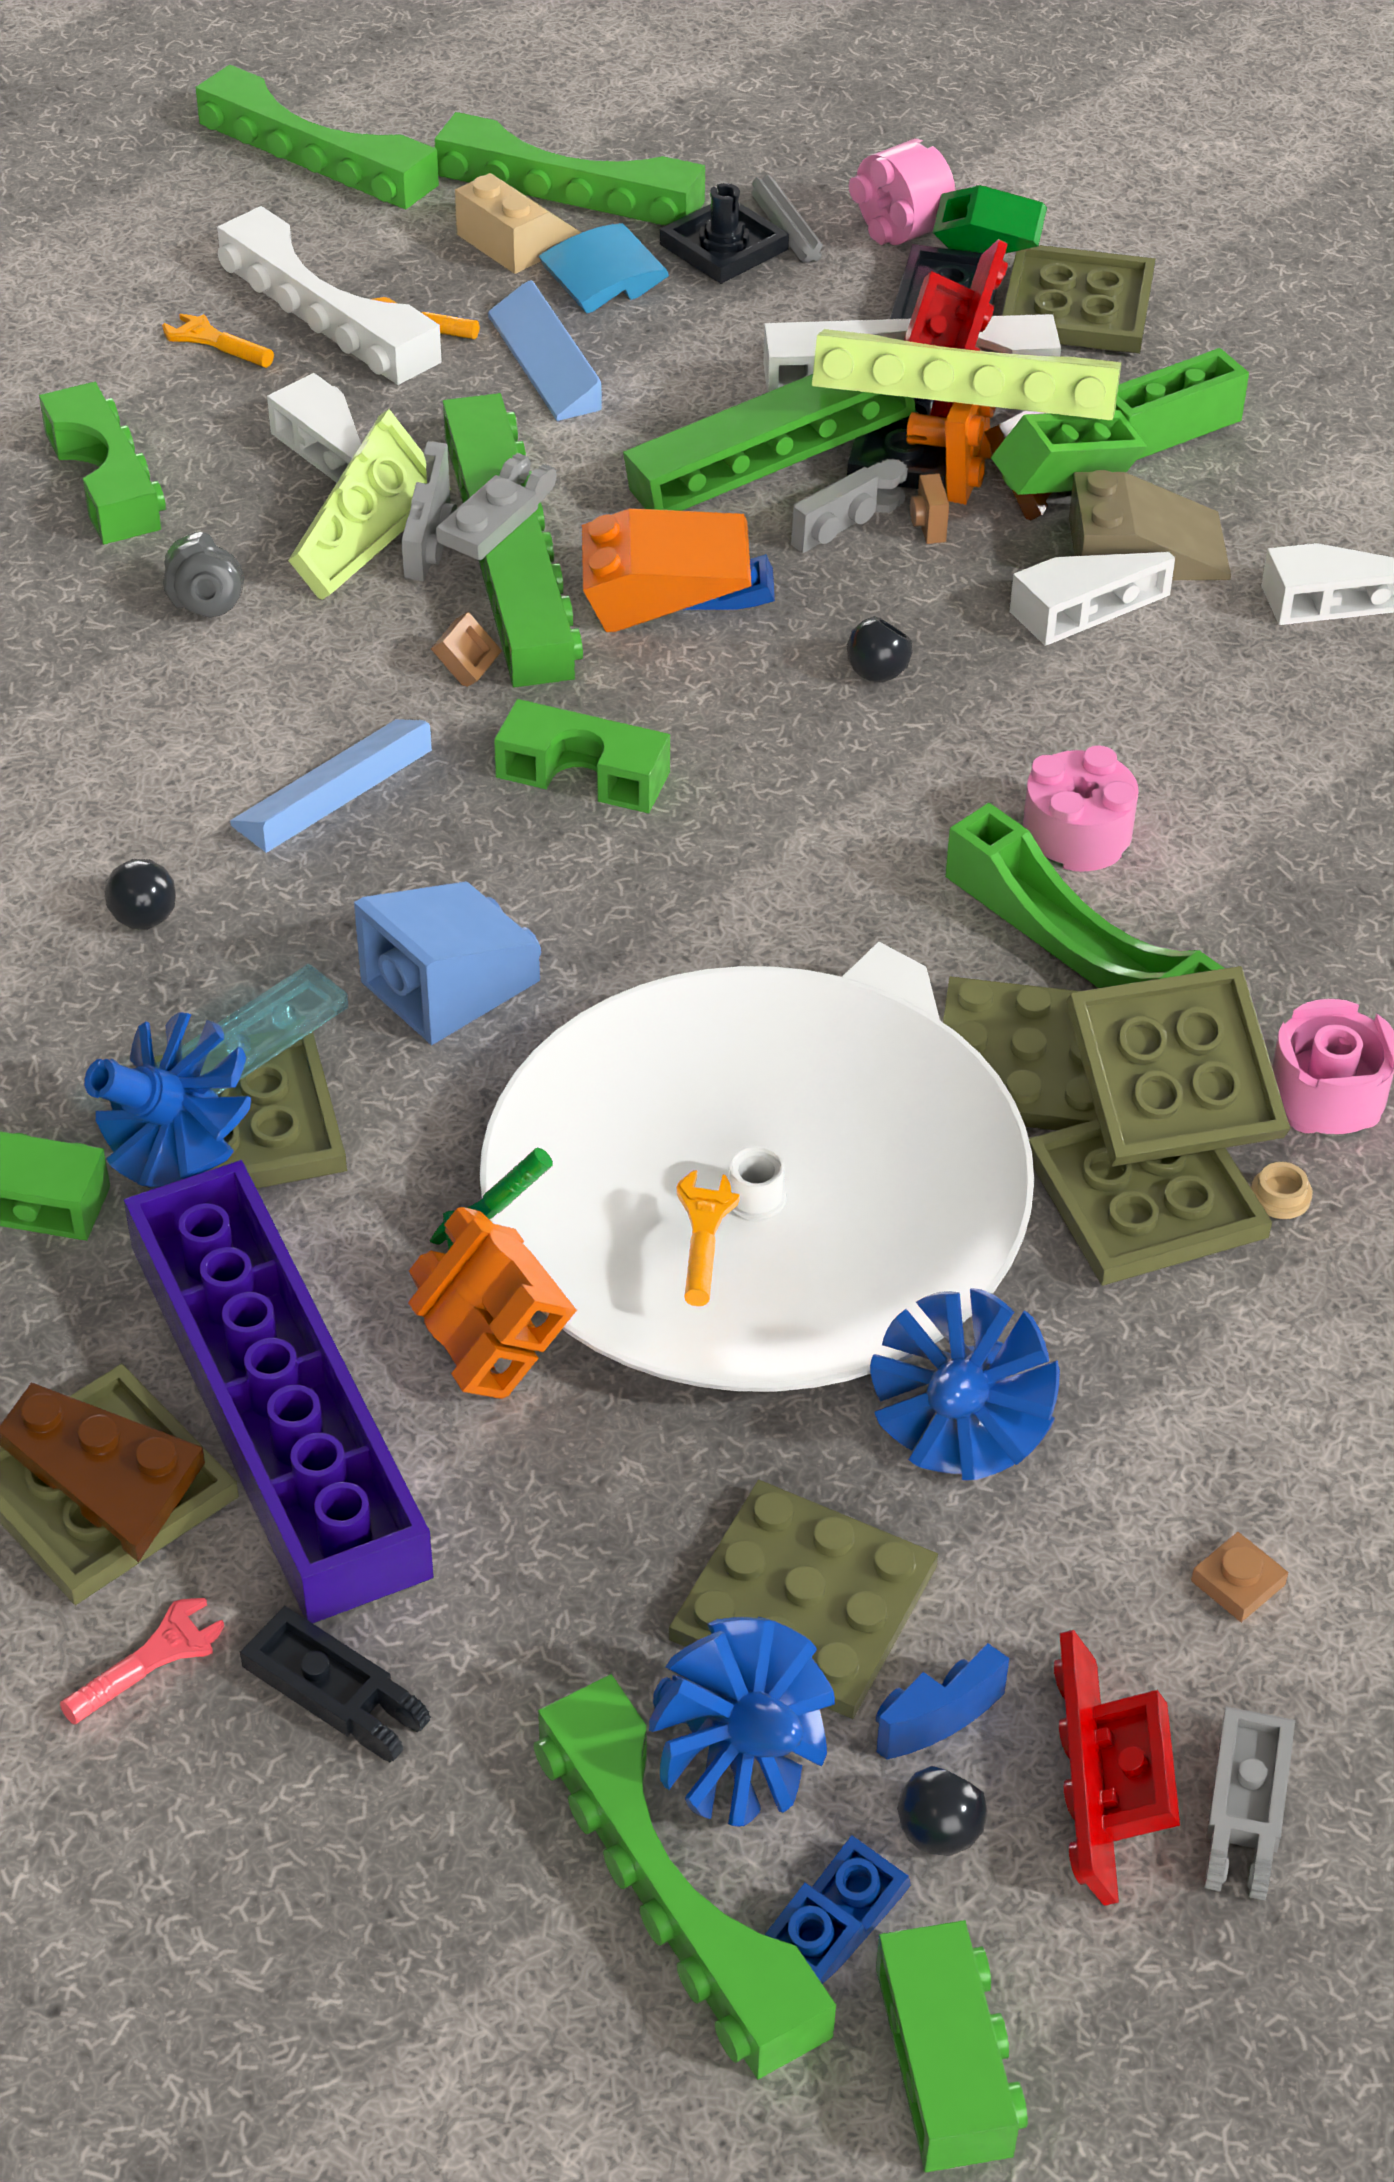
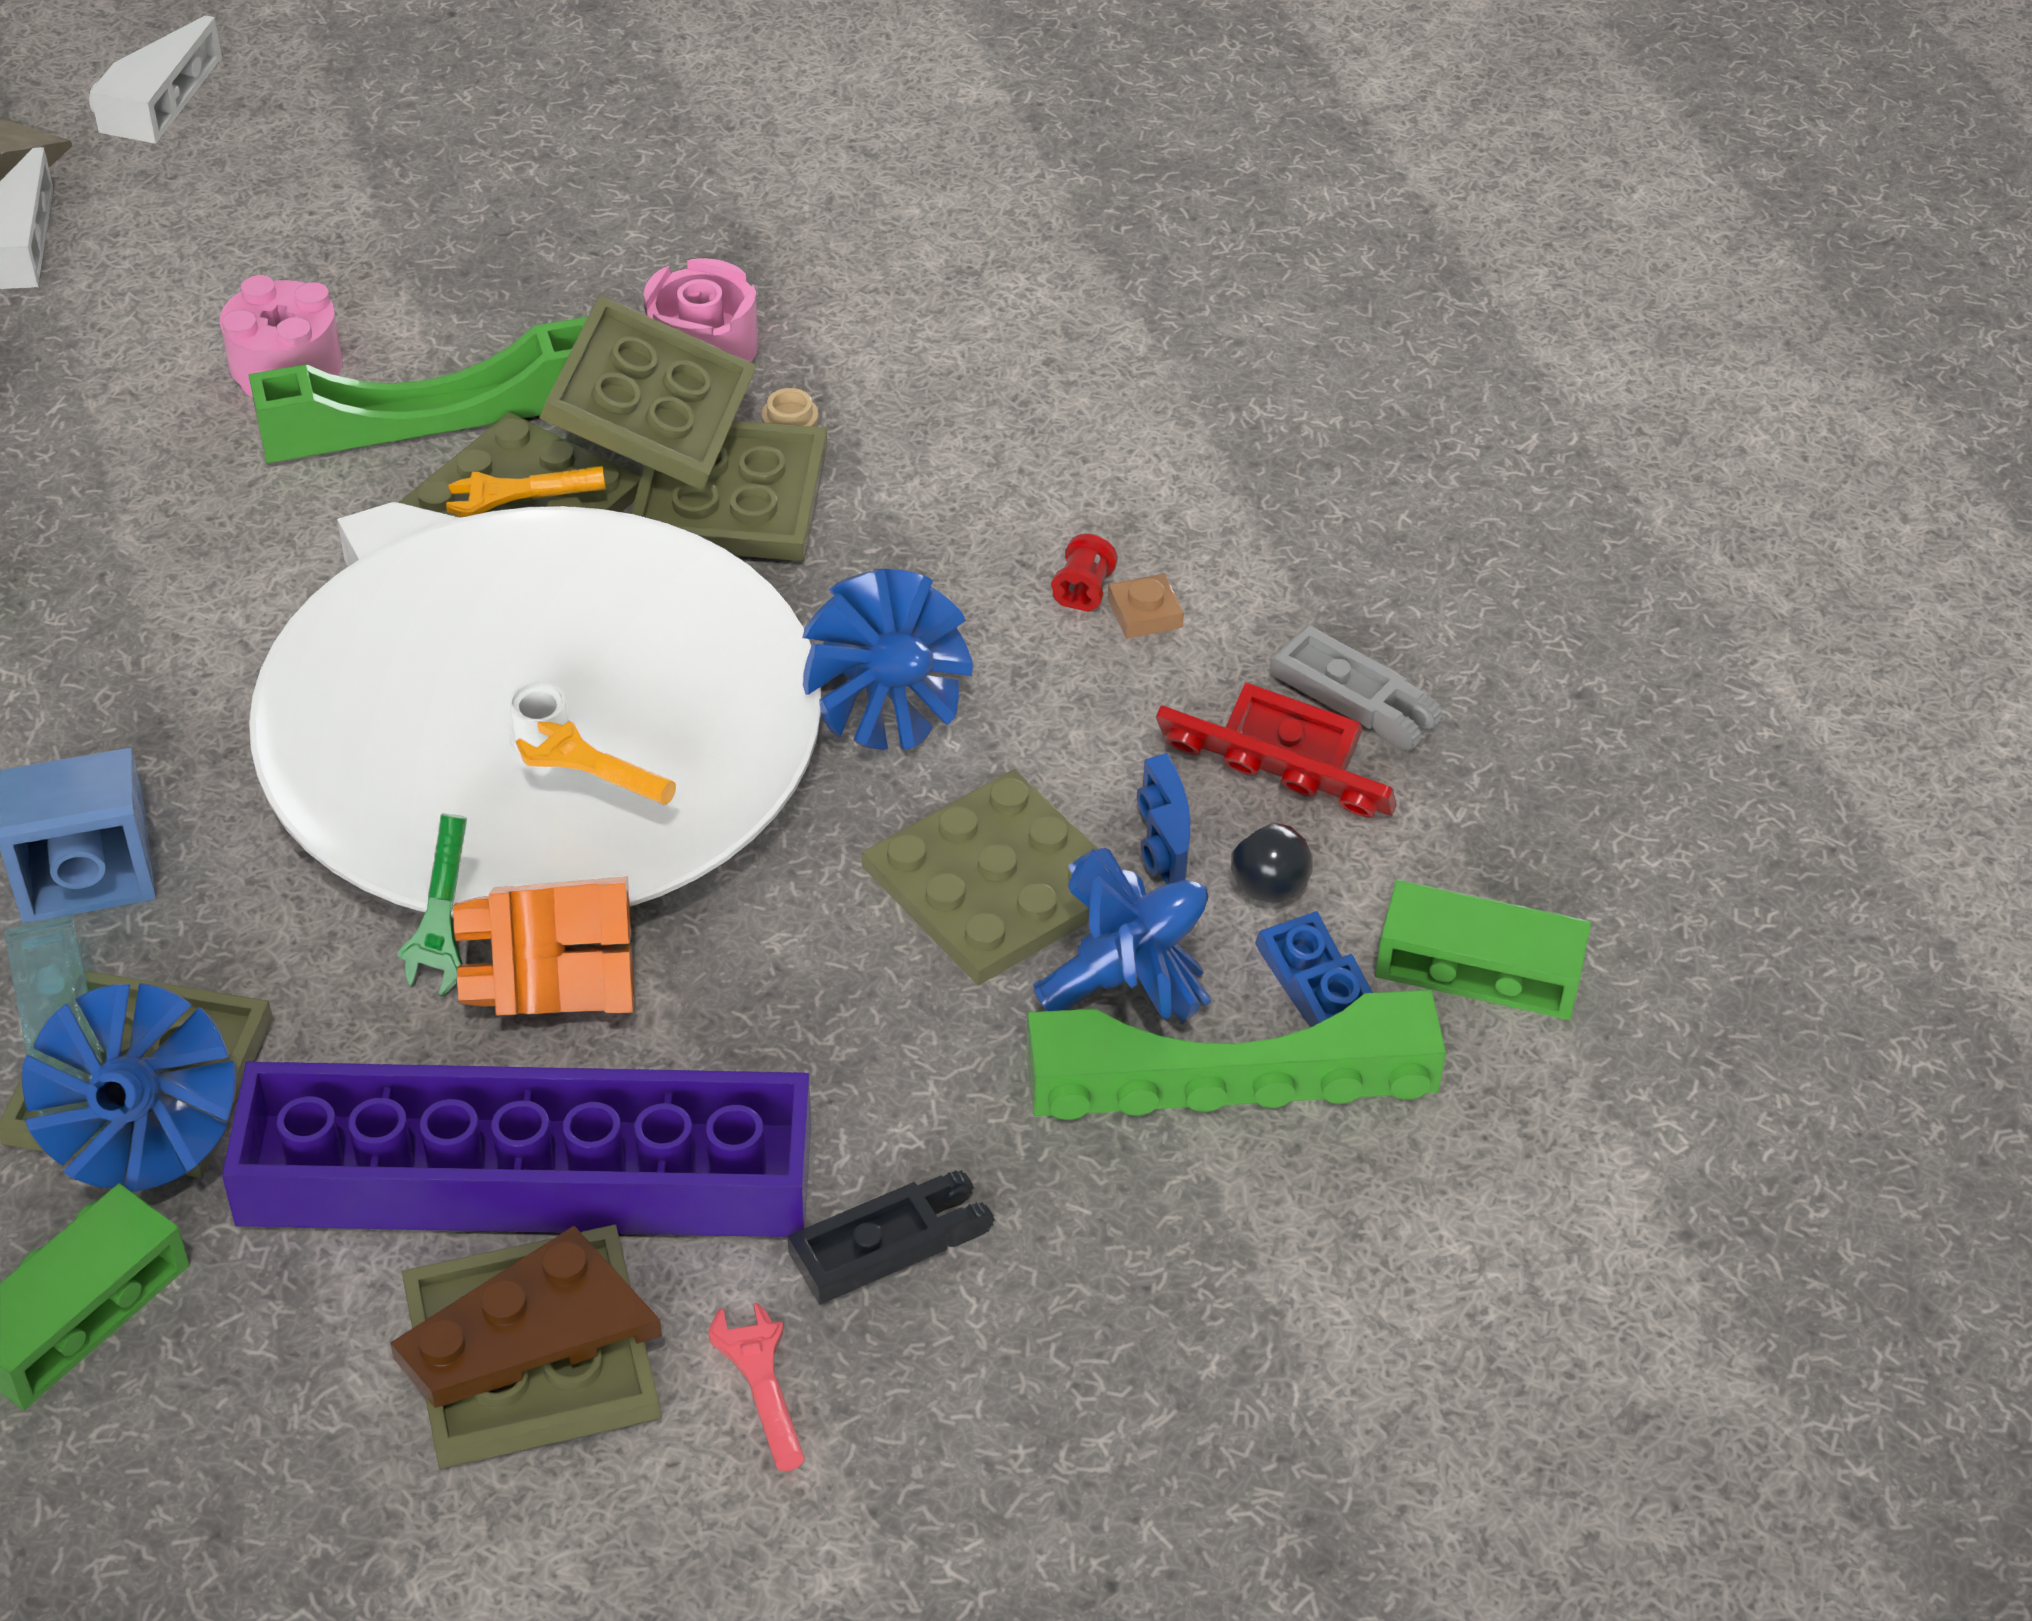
camera: 65 degrees left, 0 degrees up
(999, 1027) = (490, 491): none -> light orange piece
(1259, 1511) = (1084, 572): none -> red bush

